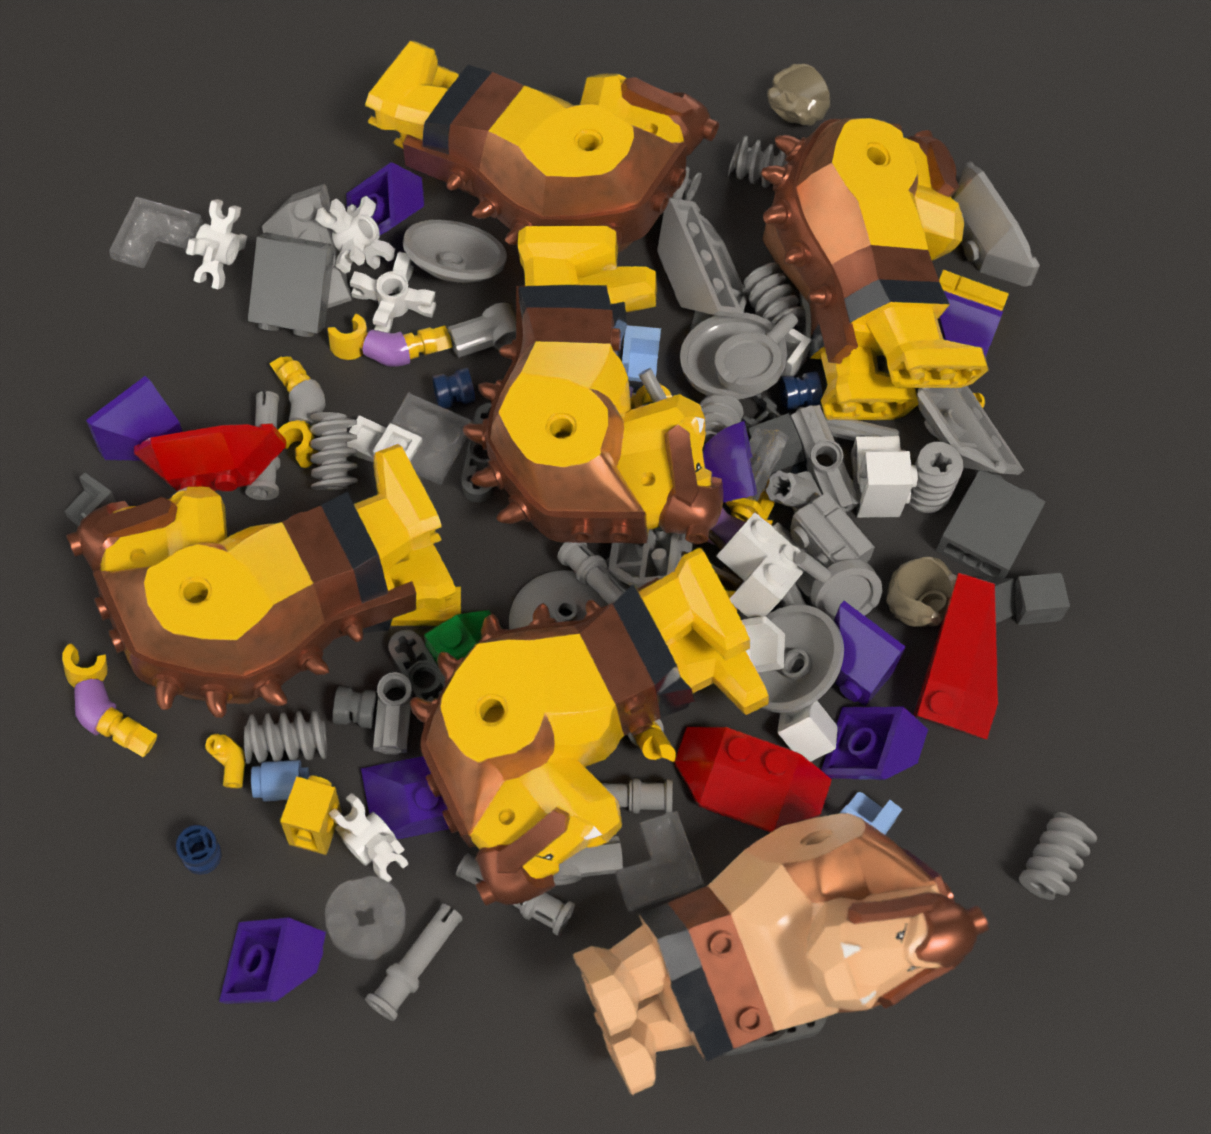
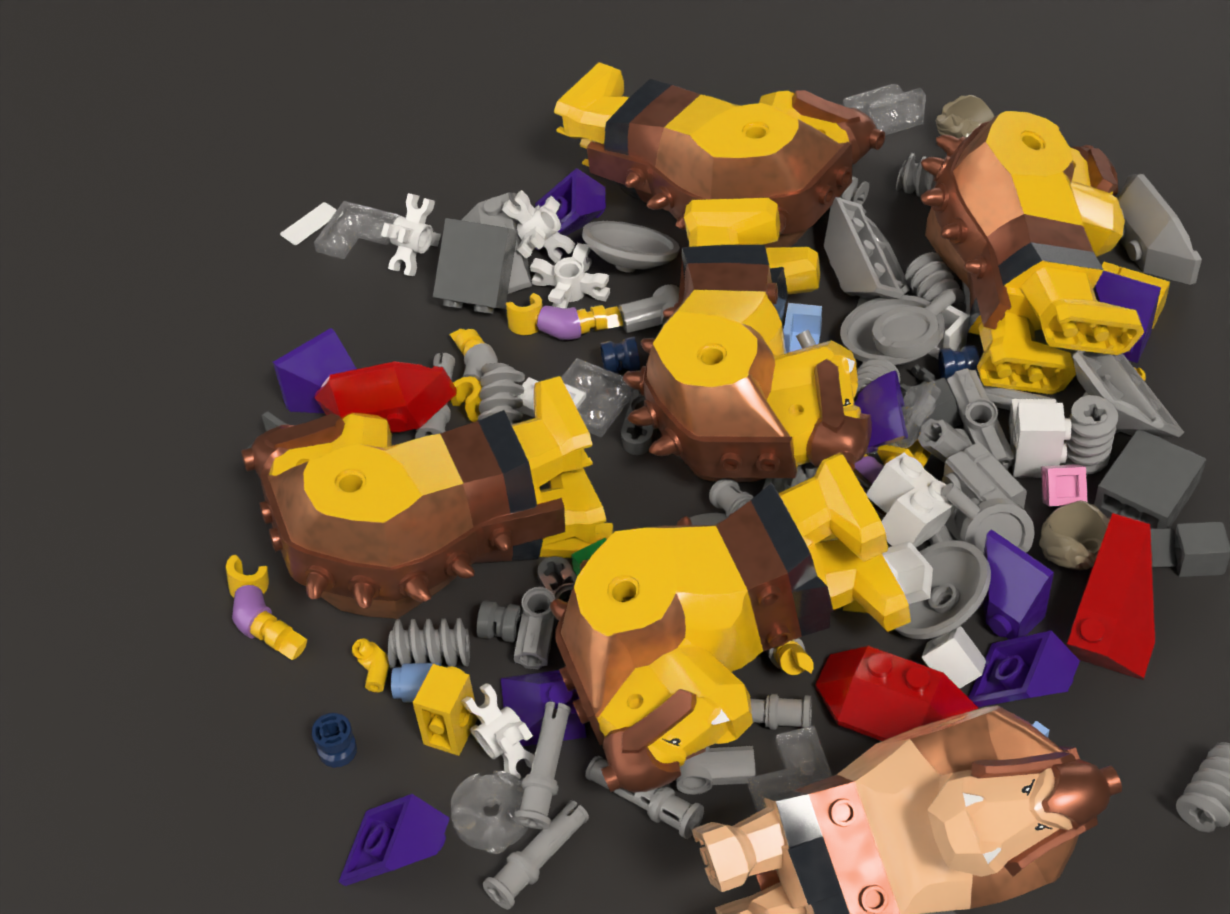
camera: 15 degrees right, 15 degrees down
(99, 221) = (309, 223): none -> white sticker
(414, 896) = (540, 783): none -> light grey pin
(713, 73) = (891, 107): none -> clear bracket
(909, 533) = (1063, 484): none -> bright pink brick

